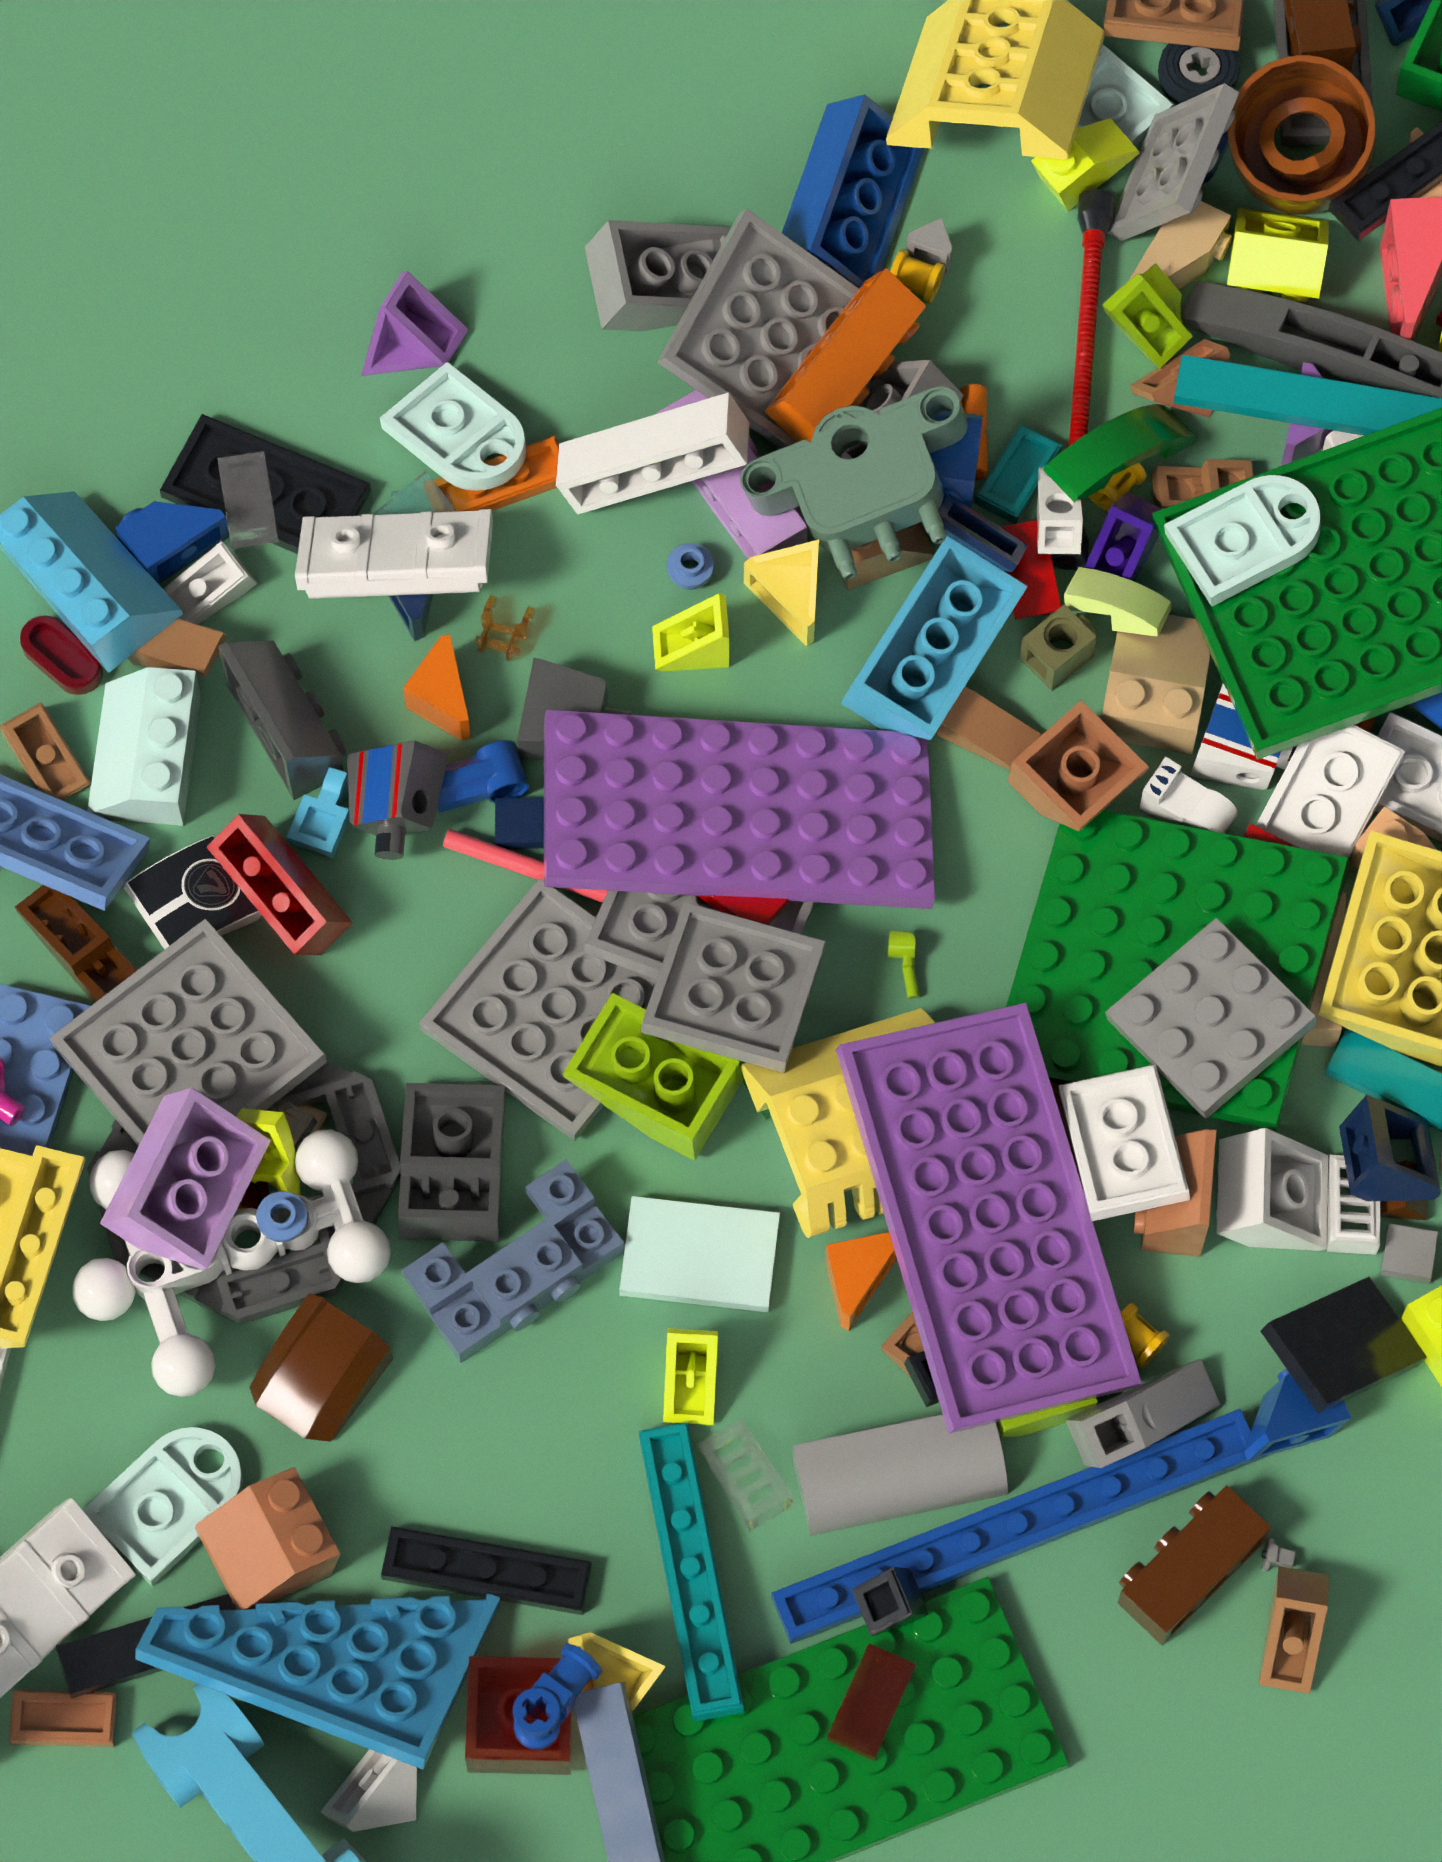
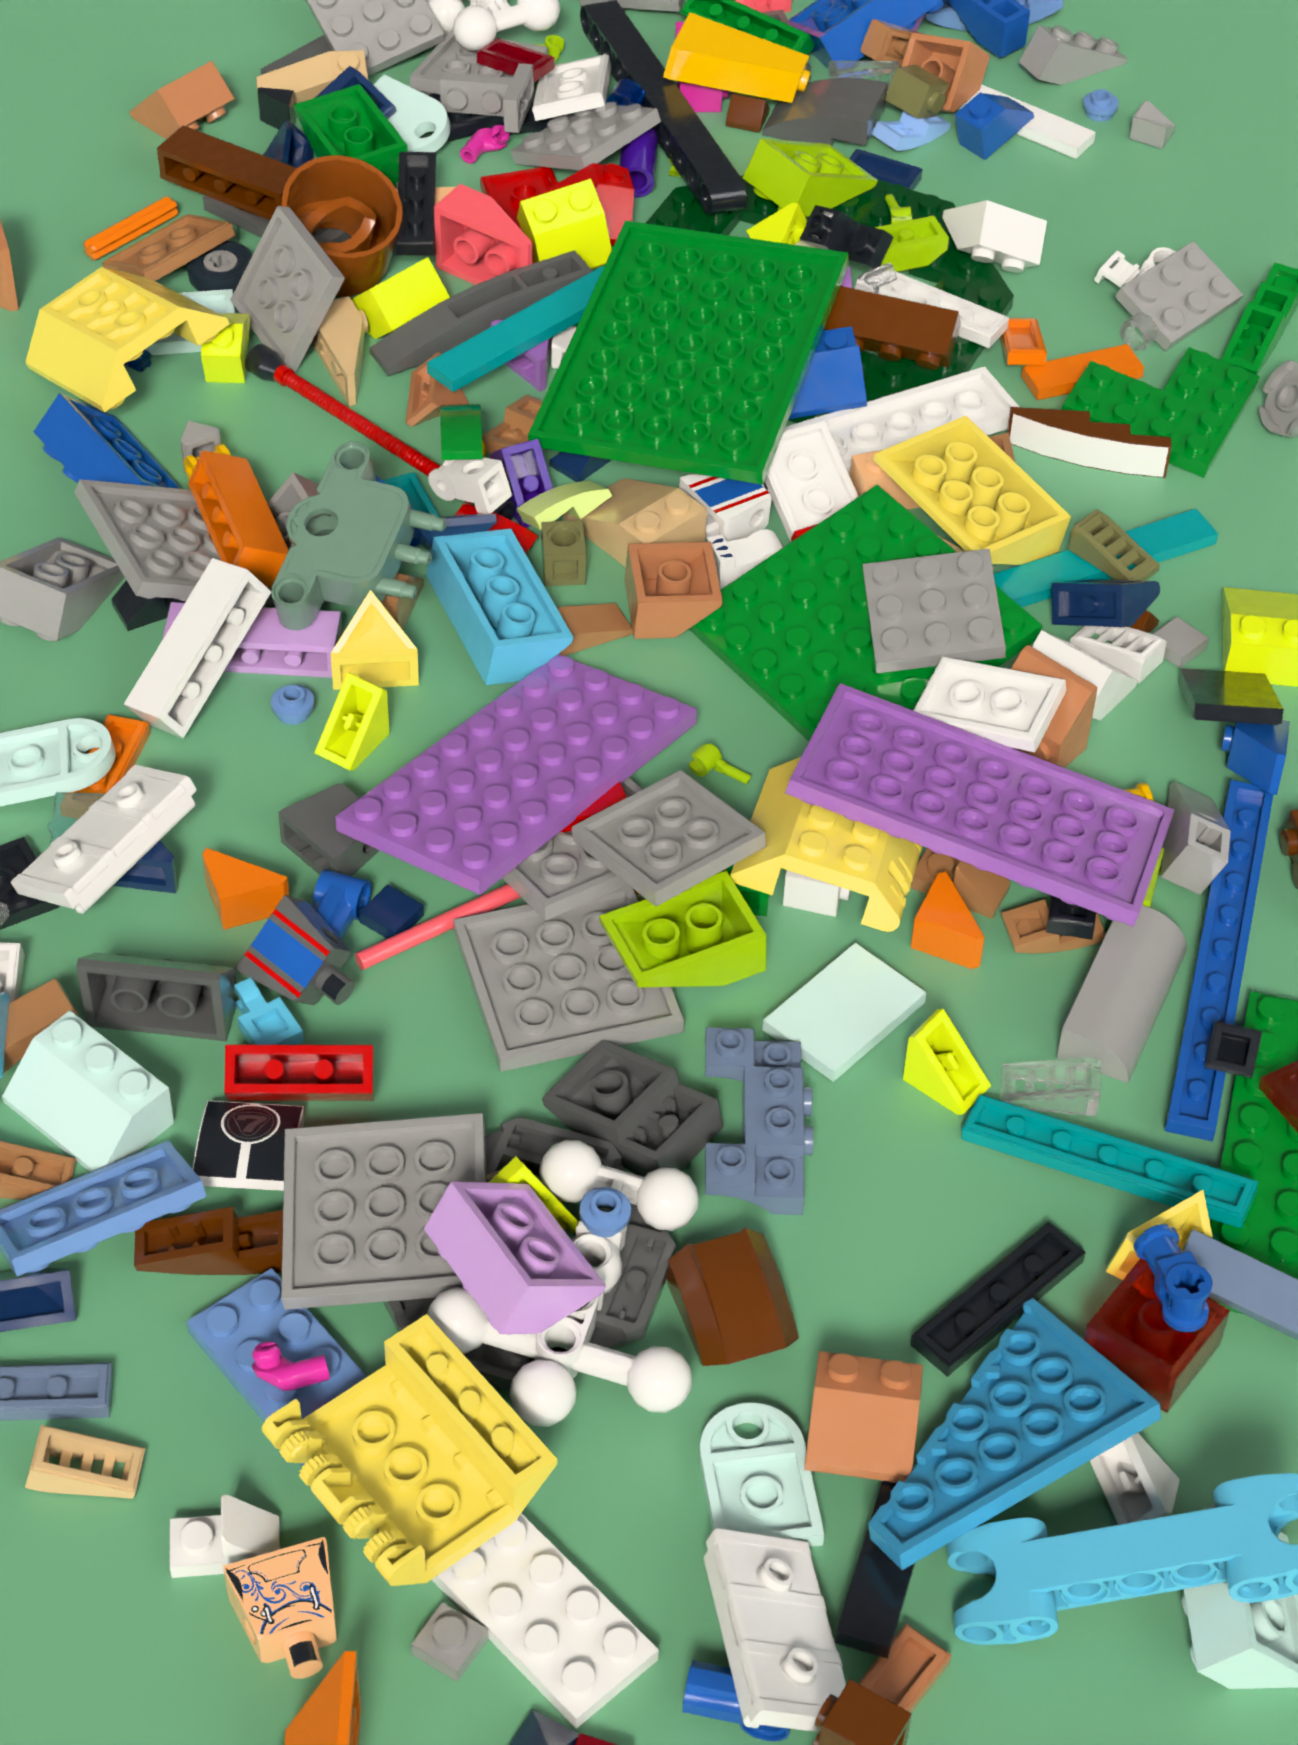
camera: 55 degrees left, 20 degrees down
(520, 631) = (211, 838): clear orange piece -> none
(1150, 315) = (377, 374): lime slope -> none
(1244, 536) = (598, 397): light aqua tile -> none

